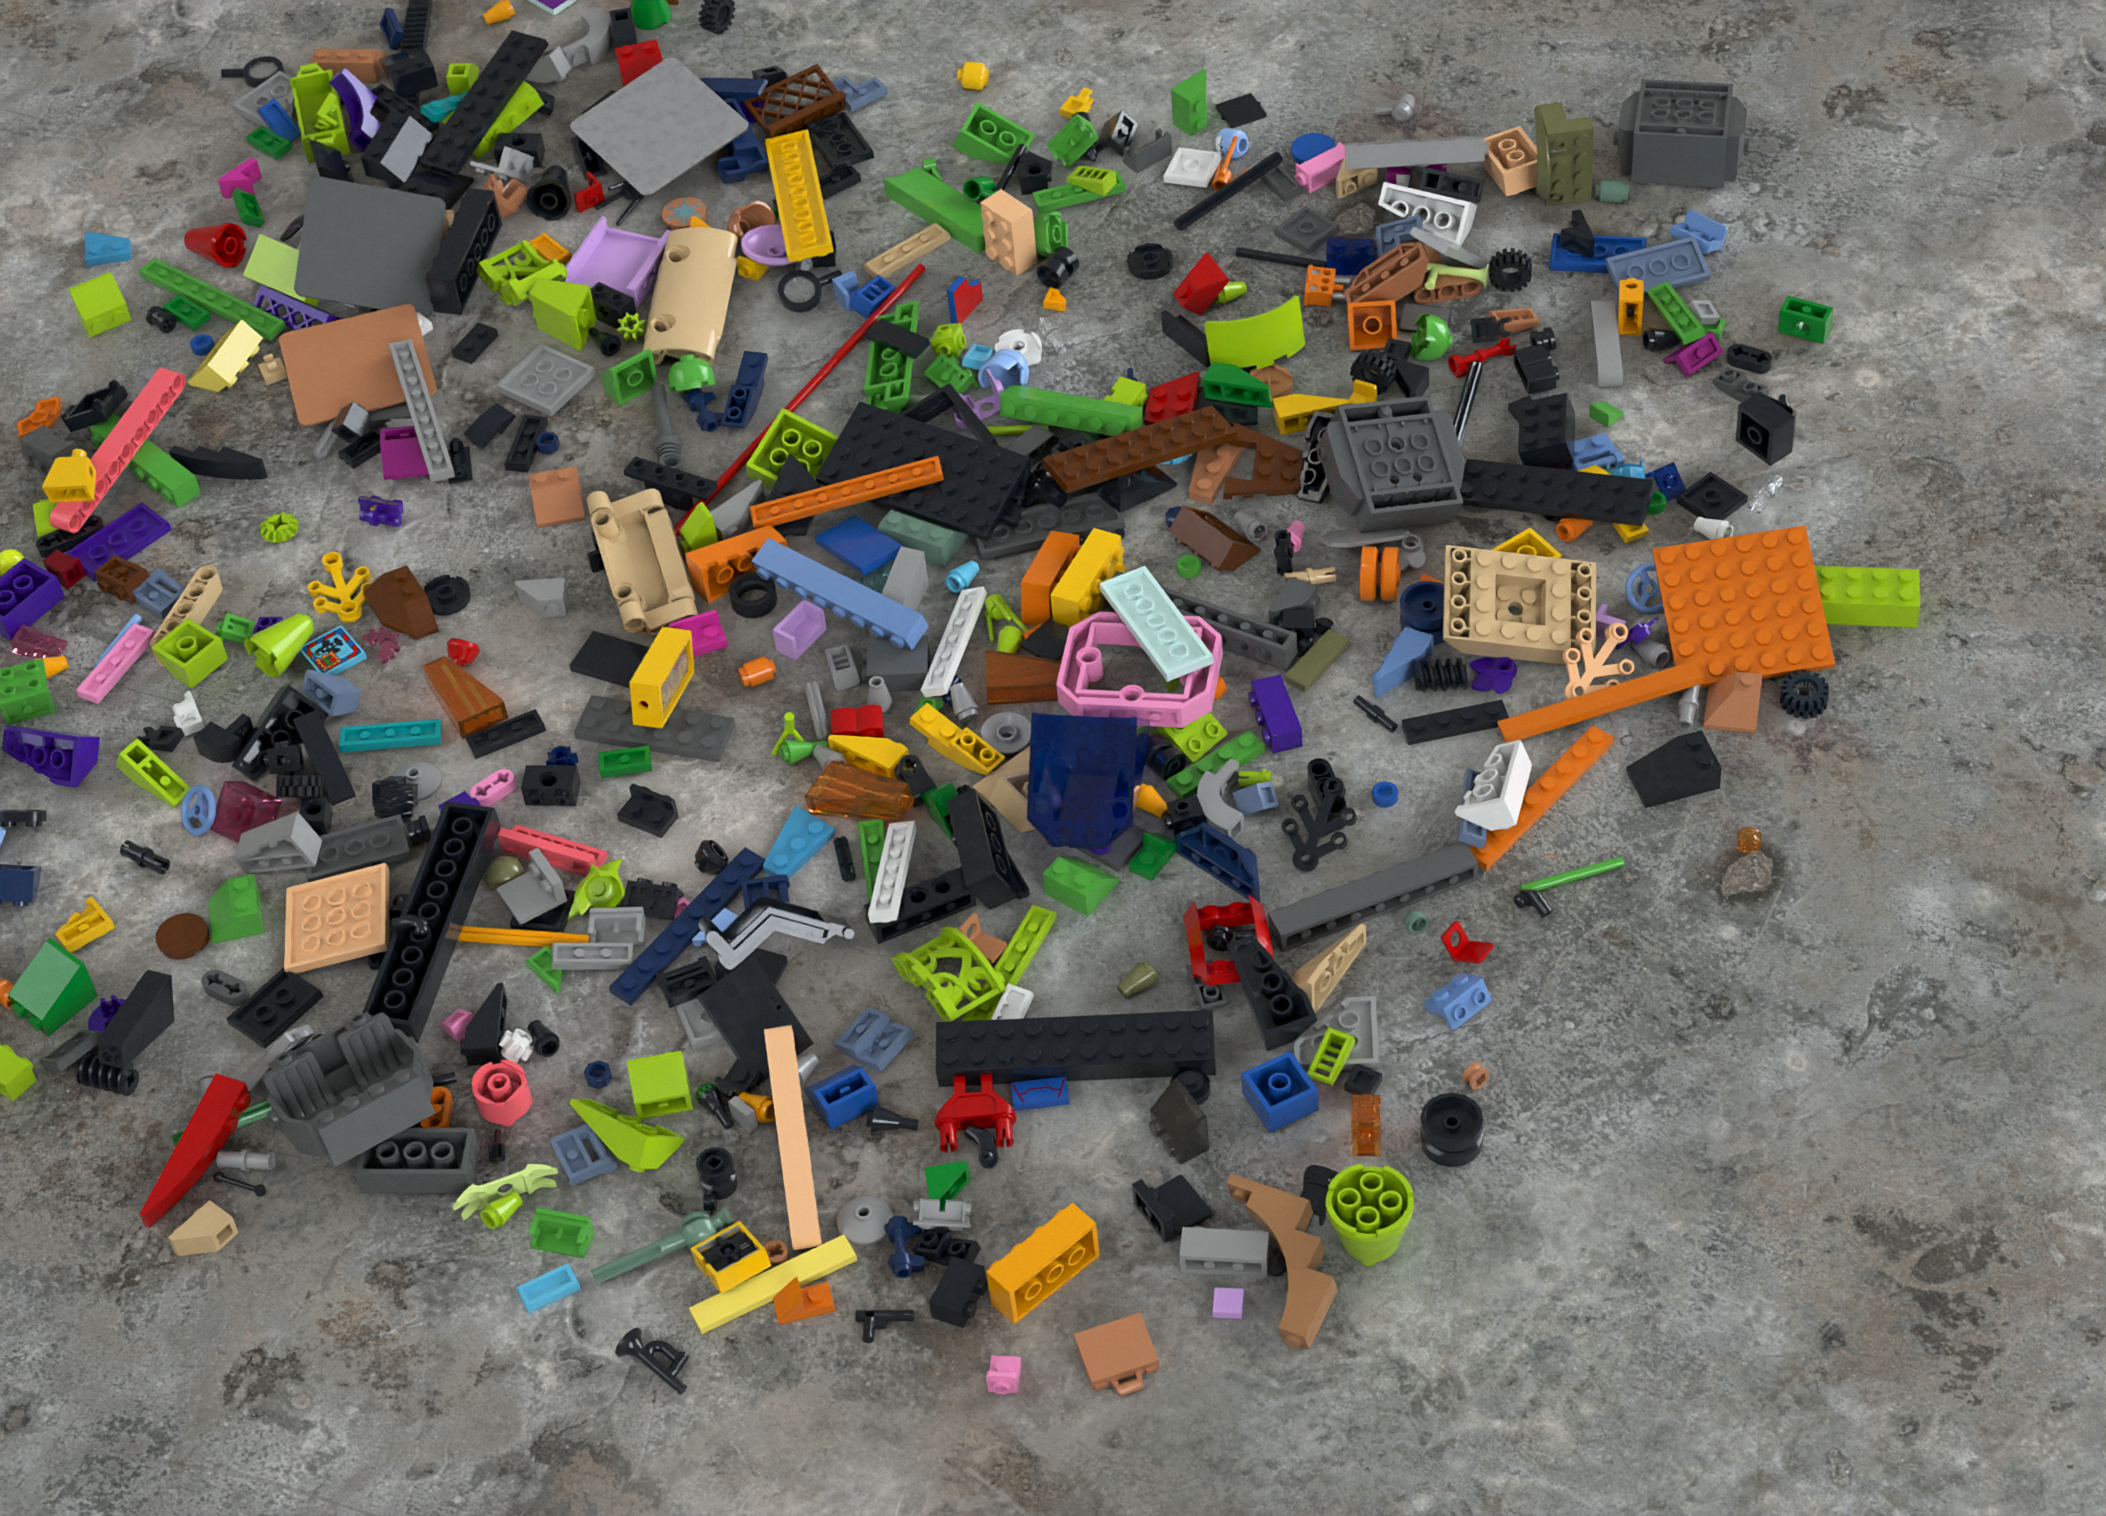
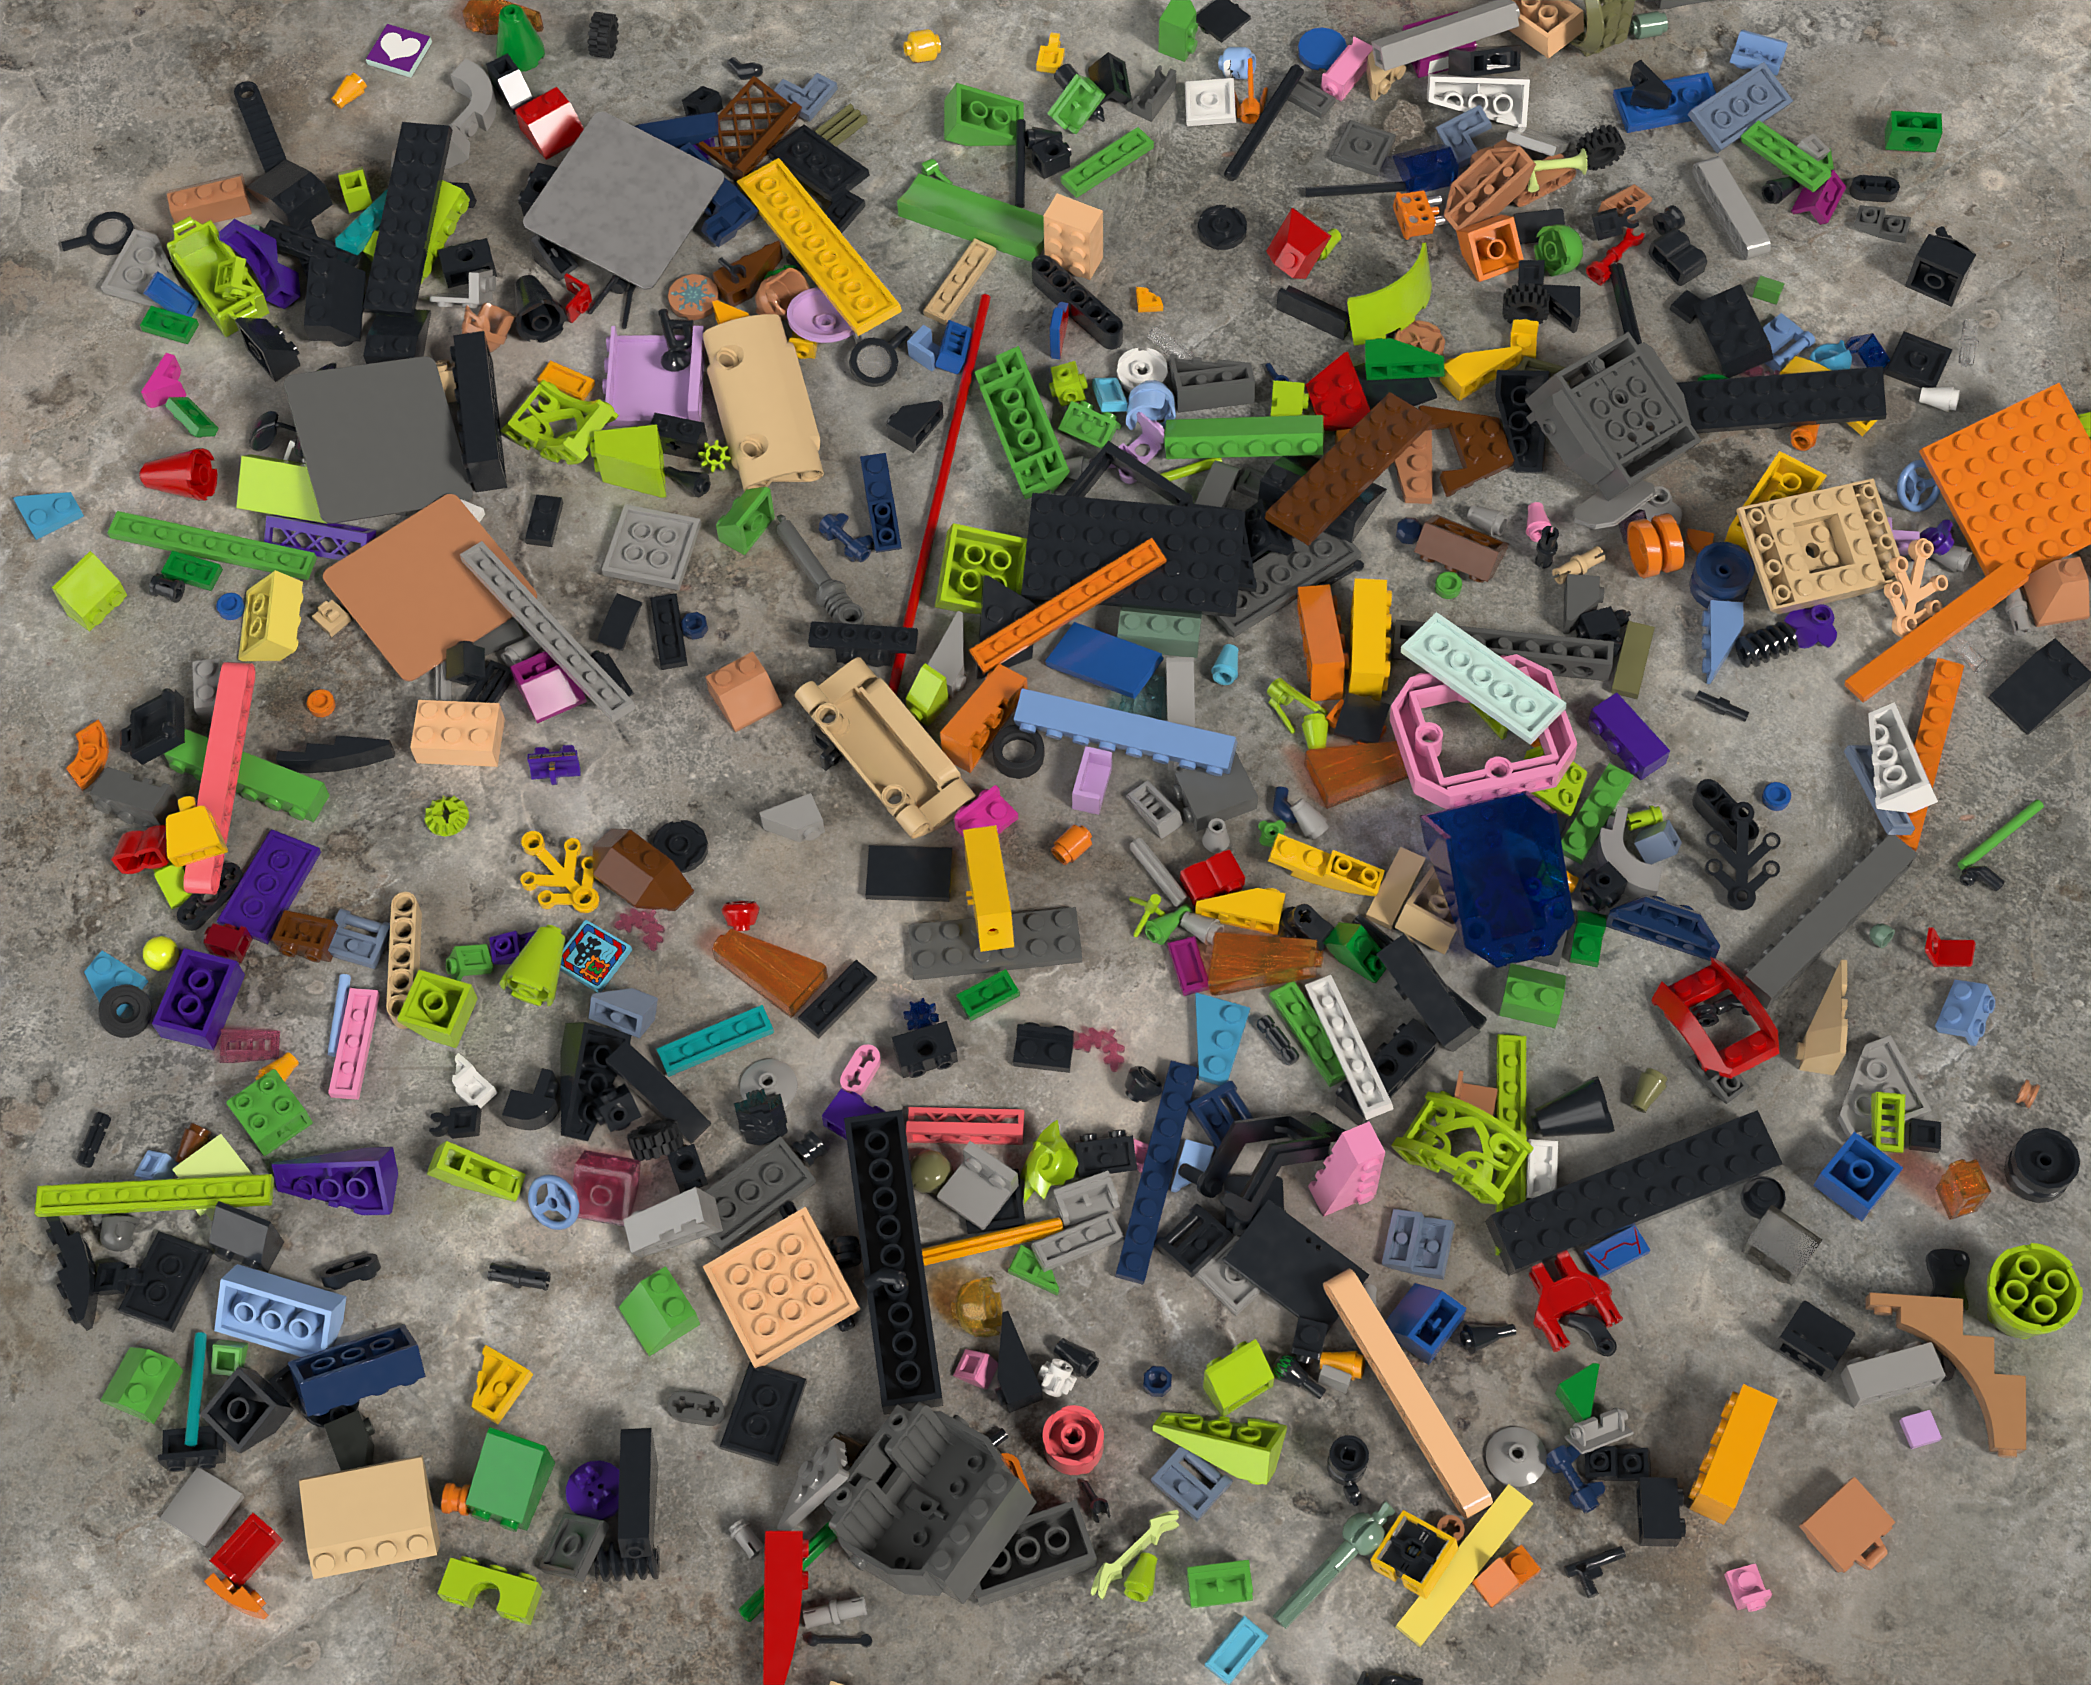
camera: 25 degrees left, 15 degrees up
(29, 489) = (141, 850): none -> red brick
(182, 936) = (613, 1360): reddish brown tile -> none
(230, 427) = (321, 703): none -> orange tile
(318, 470) = (457, 733): none -> light nougat brick
(391, 28) = (235, 141): dark blue tile -> none
(481, 974) = (978, 1307): none -> clear yellow cylinder
(640, 249) = (677, 356): none -> black piece
(690, 374) = (816, 502): bright green cylinder -> none
(695, 818) = (1096, 1038): none -> clear pink animal
(720, 196) = (736, 269): none -> black hand
(722, 205) = (756, 265): none -> reddish brown slope
(801, 781) = (1188, 965): none -> magenta tile
(807, 342) = (914, 423): none -> black slope
(824, 63) = (745, 71): none -> black arm
(836, 956) = (1350, 1171): none -> bright pink wedge
(875, 120) = (838, 123): none -> olive tile
(897, 338) = (1022, 399): black tile -> none
(954, 642) = (1263, 749): white plate -> none
(979, 188) = (1003, 185): green piece -> none
(993, 286) = (1082, 304): none -> black beam
(1006, 725) = (1375, 830): light grey dish -> none
(1049, 232) = (1111, 224): bright green cylinder -> none
(1058, 267) = (1136, 262): black wheel -> none
(1062, 975) = (1575, 1112): none -> black cone
(1067, 369) = (1210, 384): none -> dark grey wedge
(1097, 180) = (1131, 151): lime slope -> none
(1276, 1002) = (1803, 1075): black wedge -> none
(1454, 722) = (1801, 692): black plate -> none
(1630, 298) = (1740, 156): light orange torso -> none

